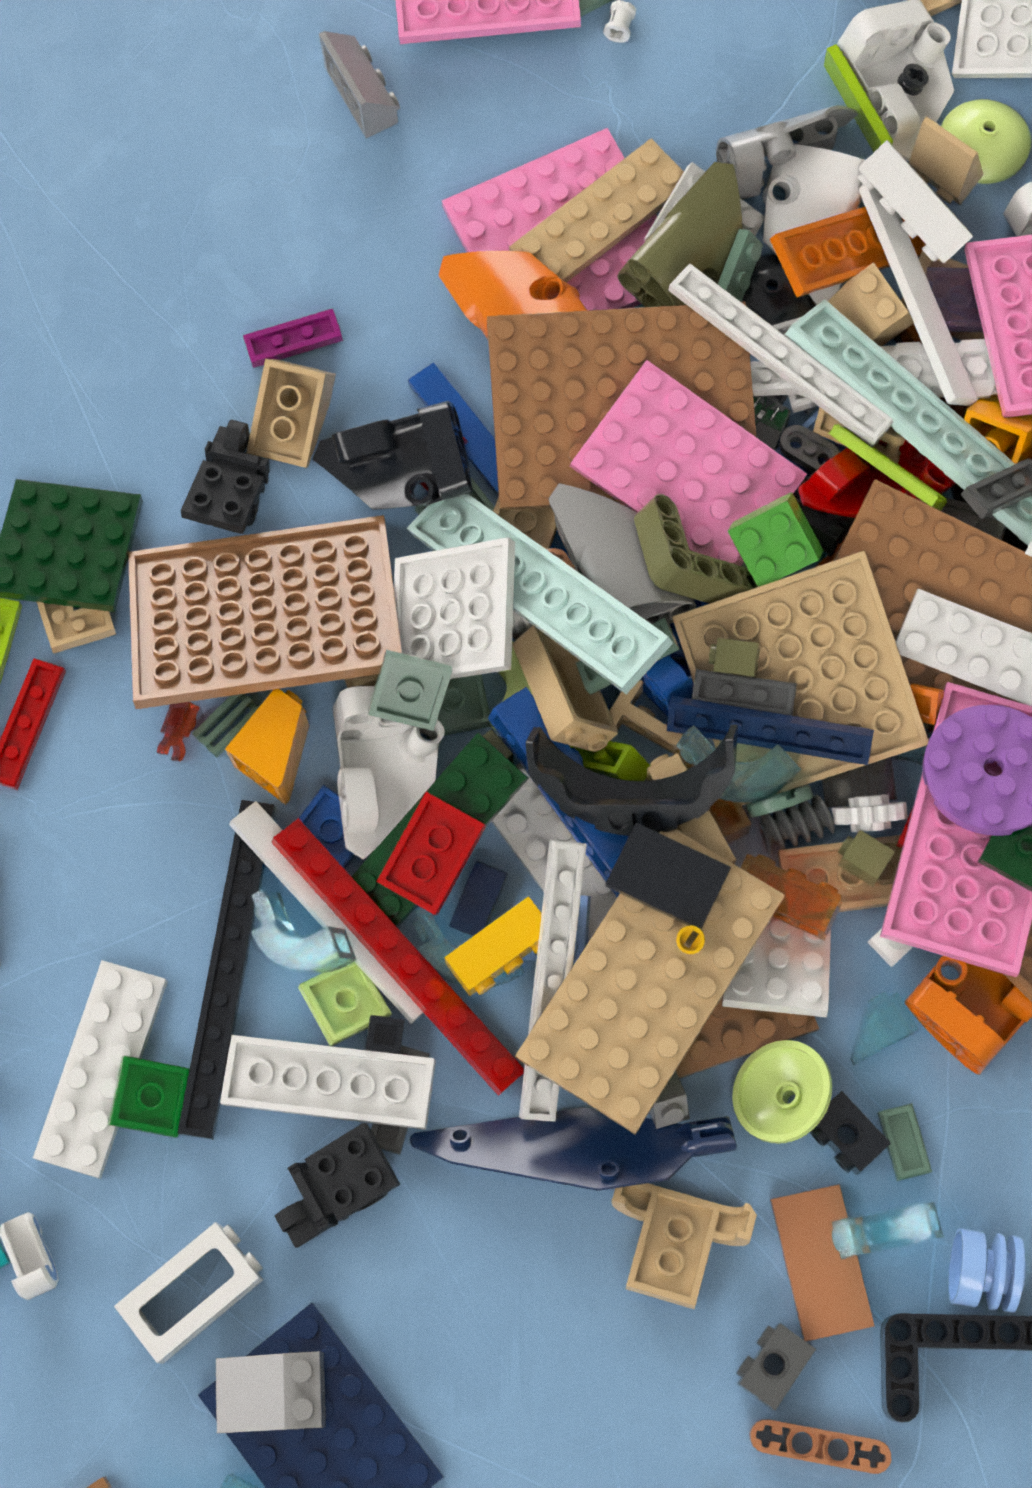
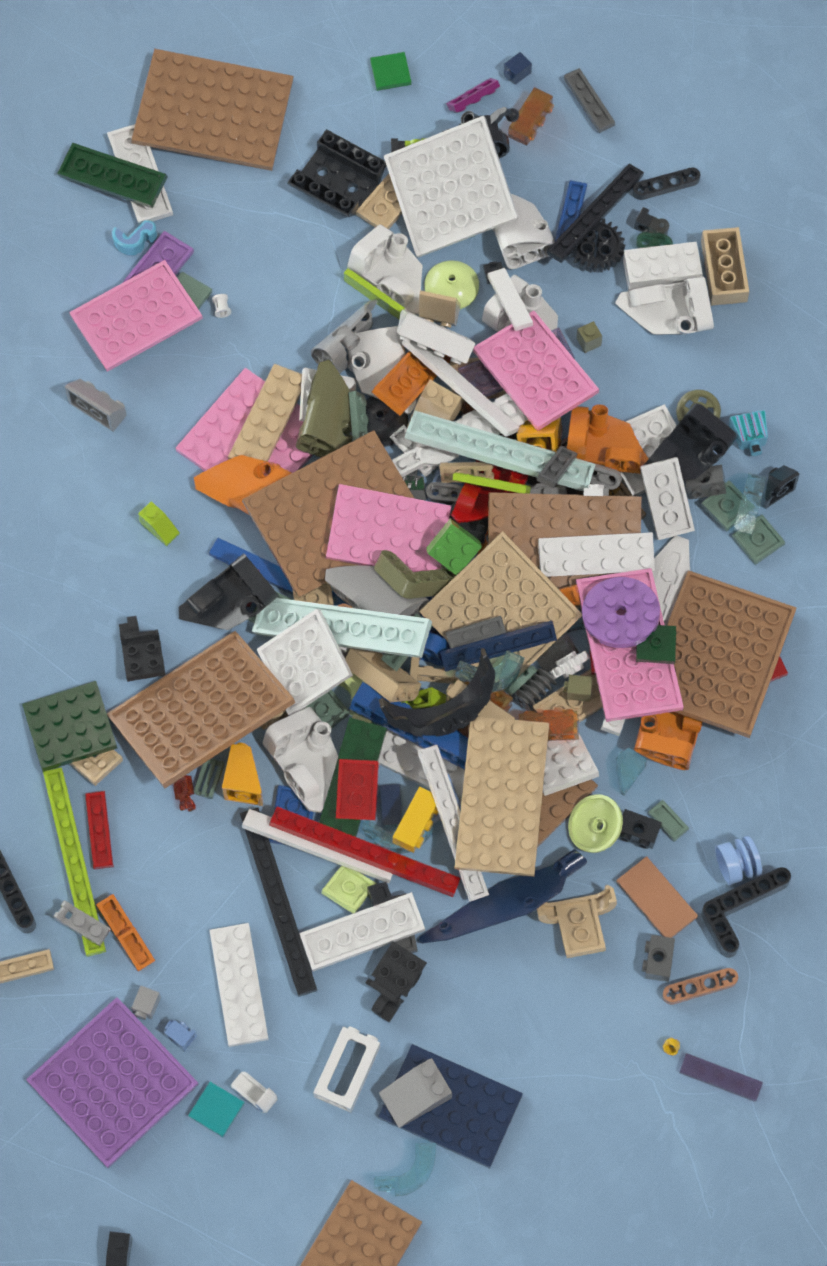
camera: 30 degrees left, 5 degrees down
(148, 1096) = (273, 984): green plate -> none
(289, 412) = (154, 599): tan slope -> none
(293, 337) = (133, 558): magenta plate -> none
(317, 953) = (322, 870): clear light blue arch -> none
(356, 301) = (158, 523): none -> lime slope
(410, 690) = (304, 711): sand green plate -> none
(668, 876) = (486, 741): black tile -> none
(671, 1104) = (544, 857): light grey brick -> none
(684, 934) = (518, 765): yellow hinge -> none
(735, 657) = (463, 616): olive brick -> none
(780, 355) = (406, 449): white tile -> none
(886, 1230) = (681, 866): clear light blue arch -> none
(913, 79) = (397, 268): black bush -> none

